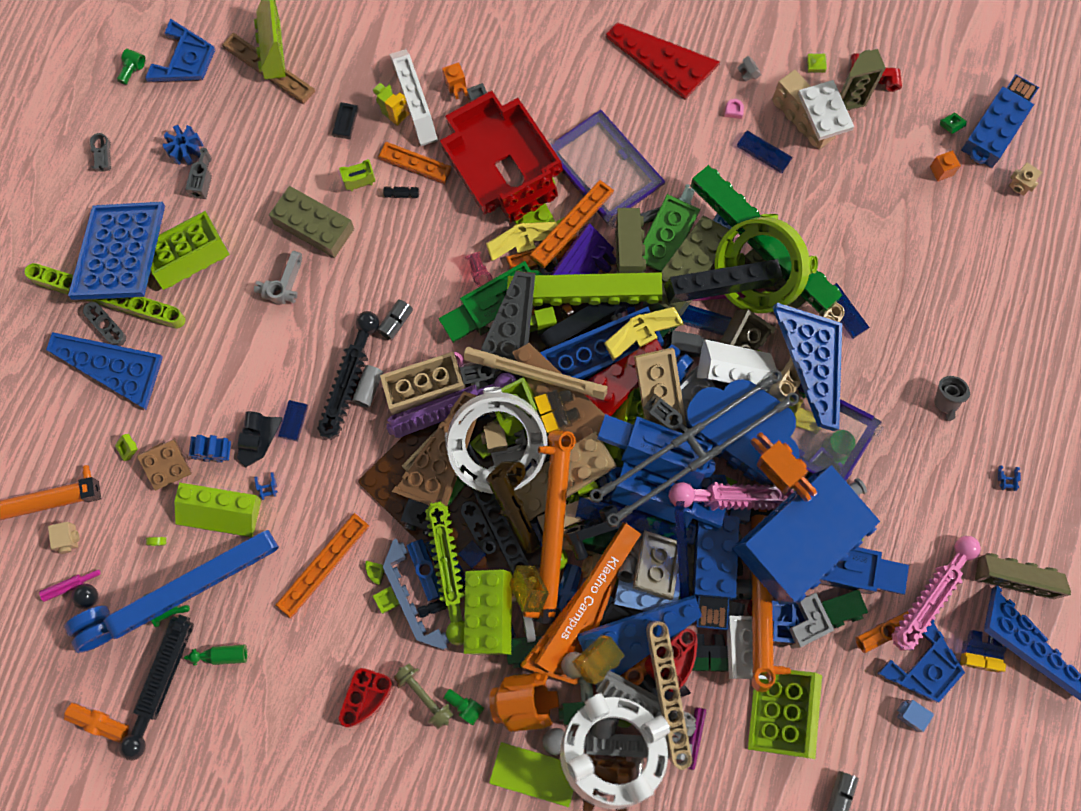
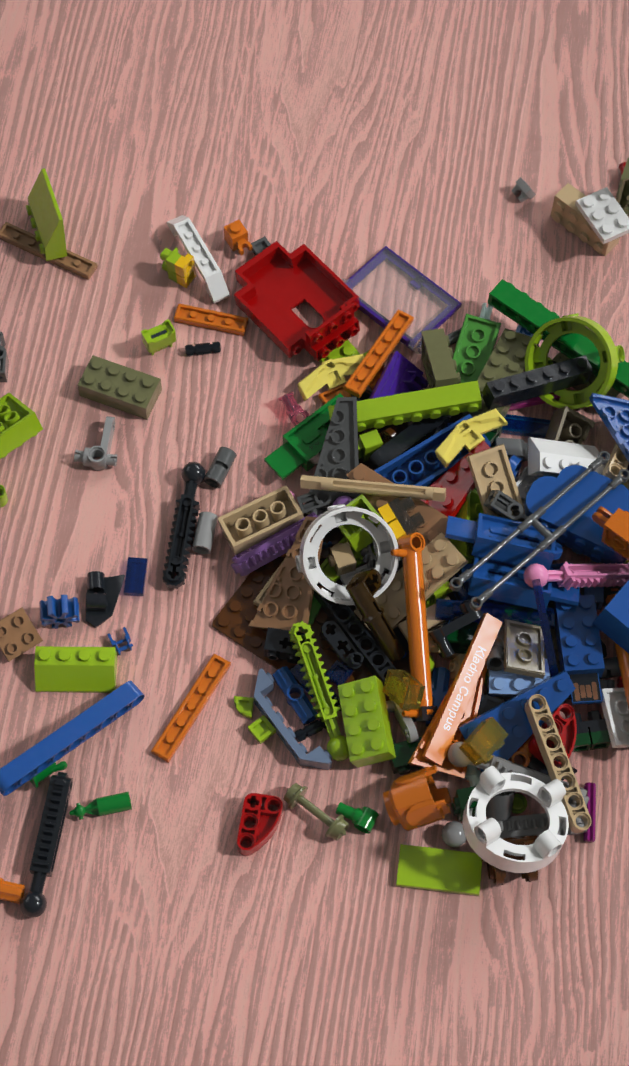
camera: 10 degrees left, 10 degrees down
(156, 541) = (19, 708): lime tile -> none
(345, 121) = (133, 290): black tile -> none
(670, 63) = (446, 195): red wing -> none
(734, 109) = (515, 229): bright pink tile -> none
(764, 151) = (552, 264): clear blue tile -> none
(816, 63) = (587, 176): lime tile -> none

